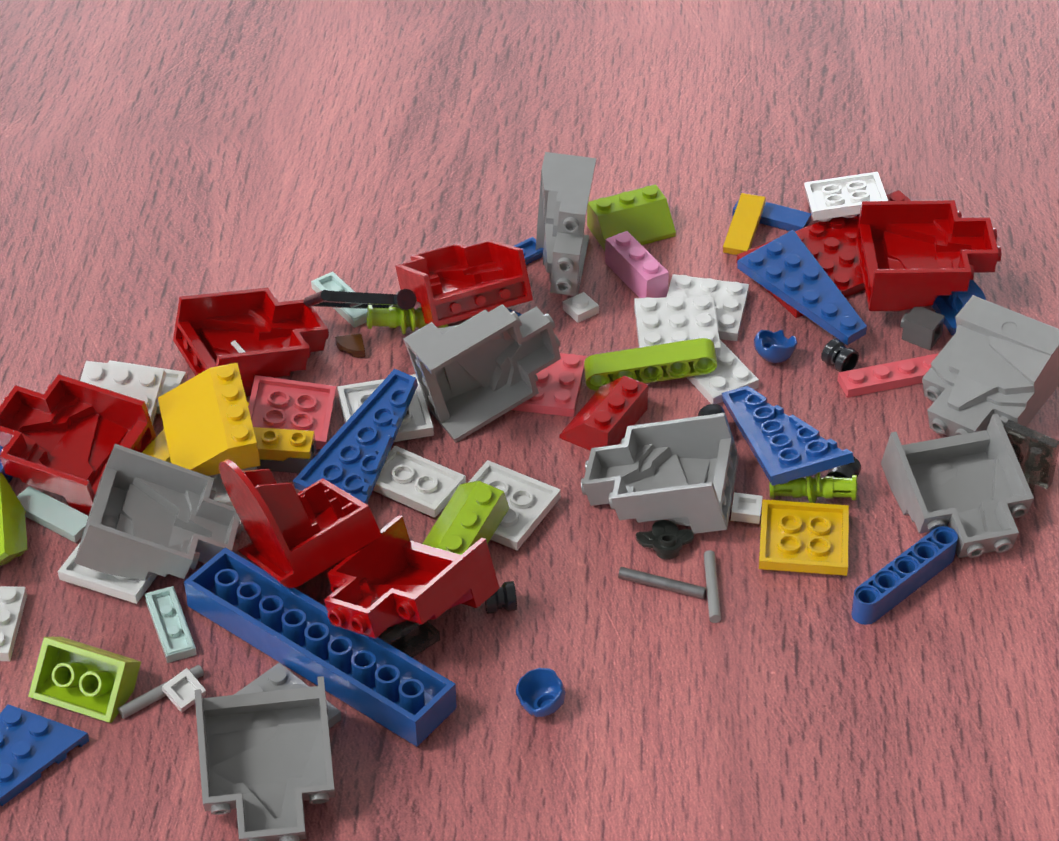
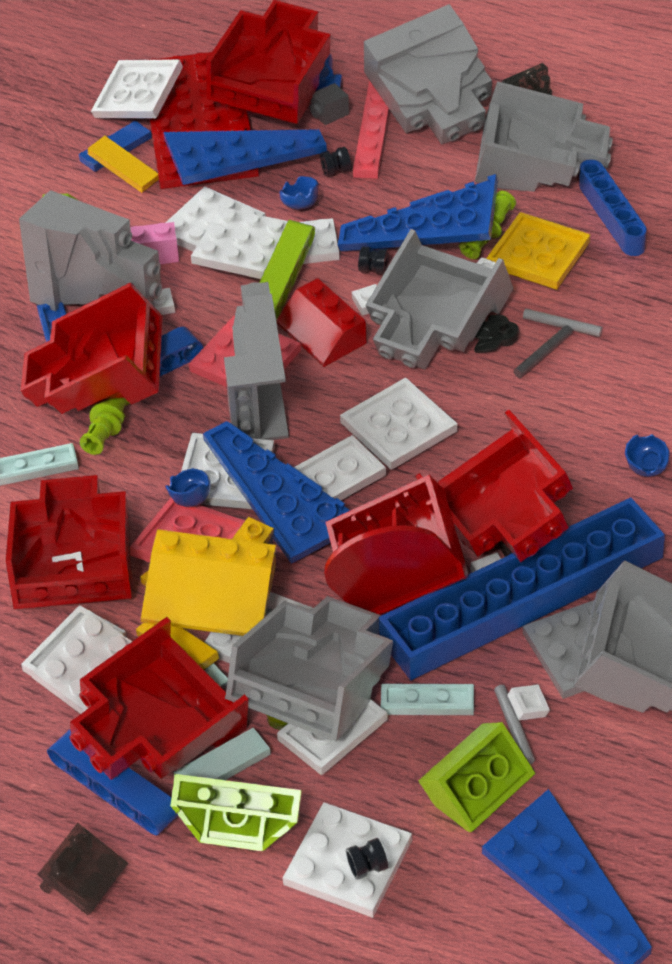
camera: 65 degrees left, 5 degrees up
(335, 388) = (189, 487): none -> blue hair
(351, 344) = (111, 472): reddish brown tile -> none
(403, 299) = (80, 435): black piece -> none
(469, 515) = (422, 442): lime slope -> none

